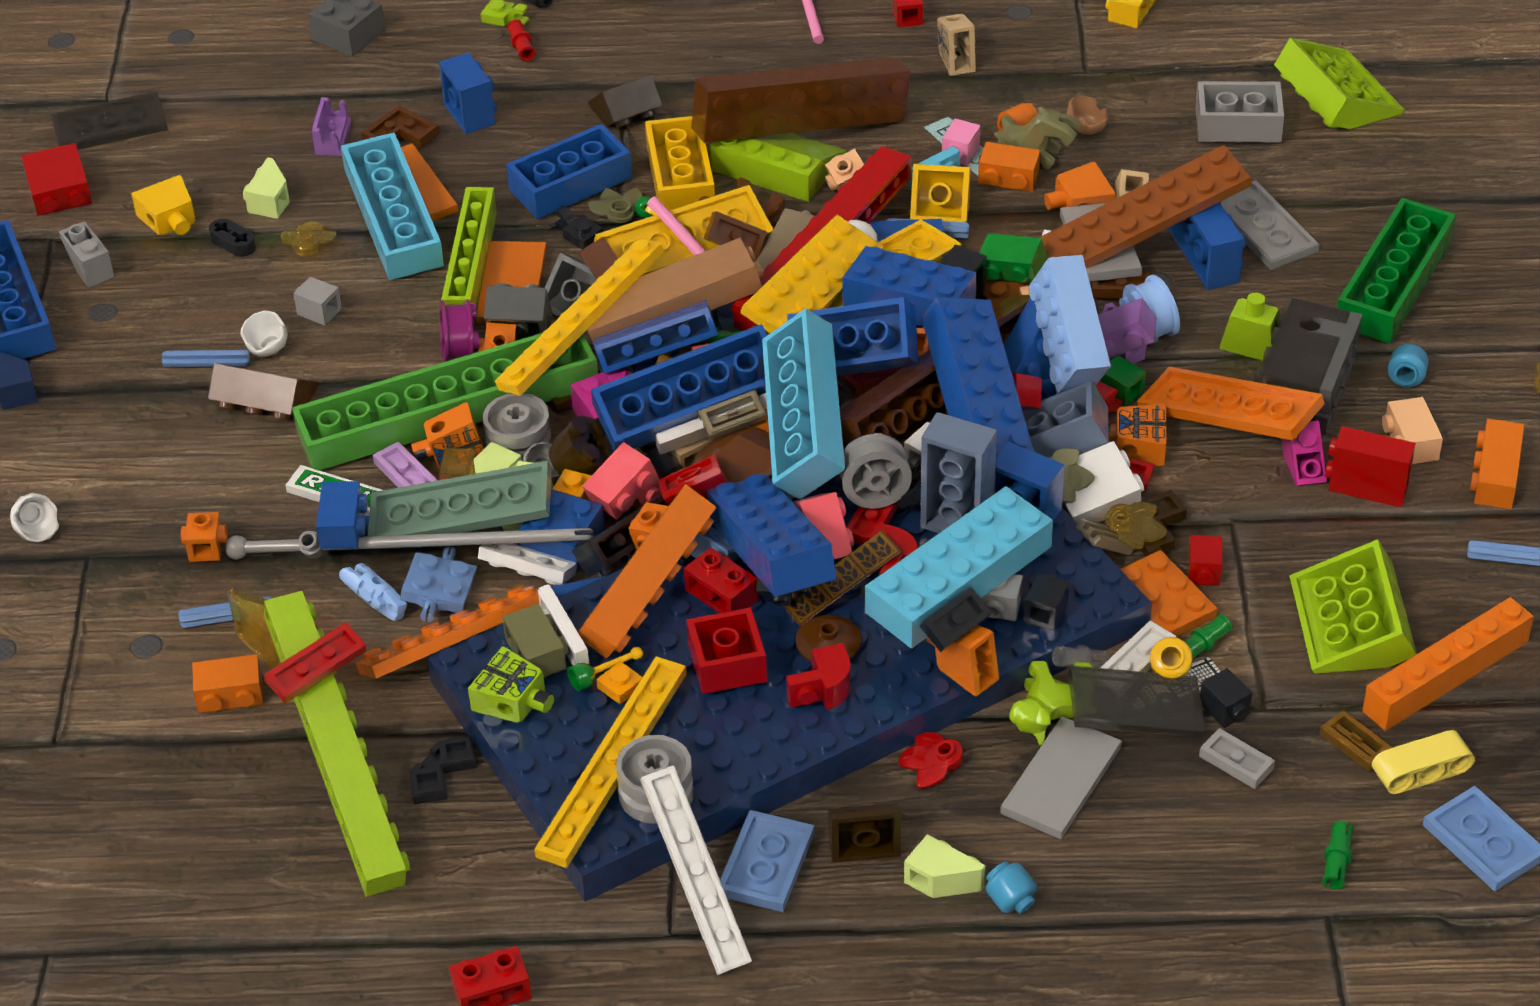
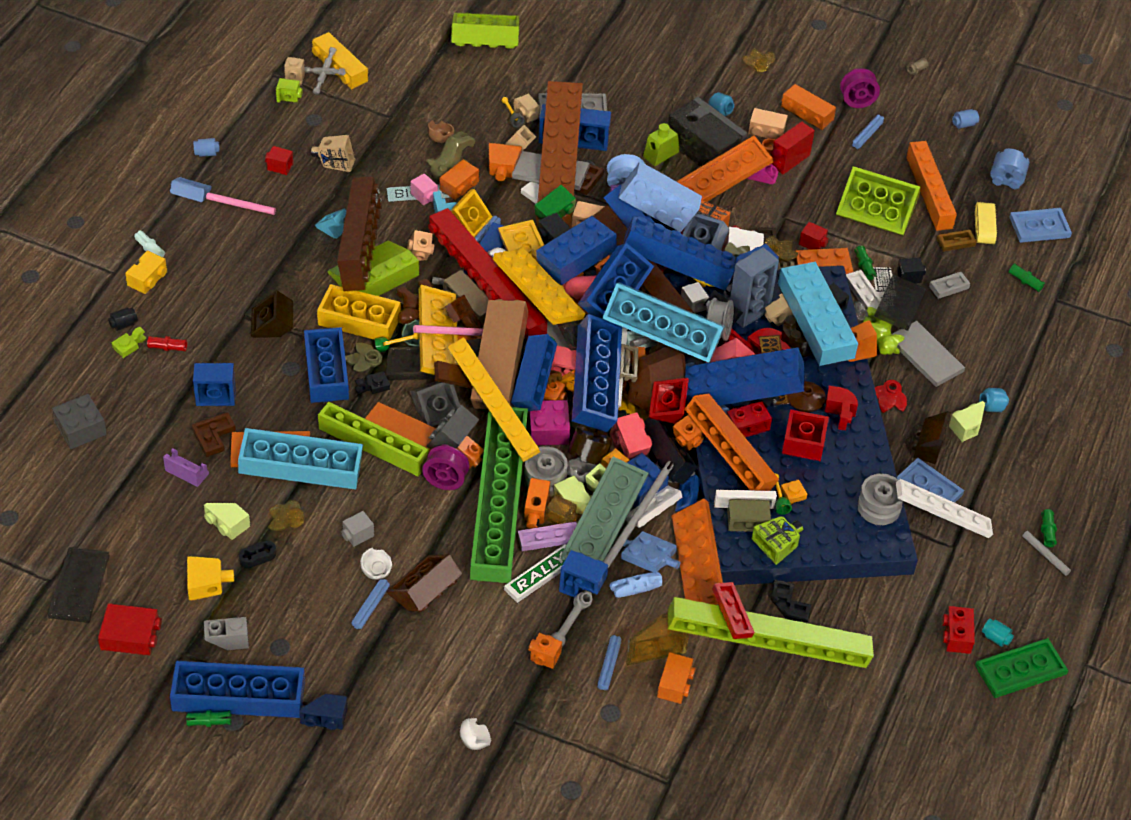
camera: 70 degrees left, 5 degrees up
(600, 776) = (853, 514): yellow plate -> none
(955, 619) = (858, 329): black plate -> none
(1020, 114) = (419, 159): orange brick -> none
(1171, 658) = (880, 276): yellow head -> none
(1239, 111) = (485, 72): light grey brick -> none
(1397, 267) = (651, 73): green brick -> none

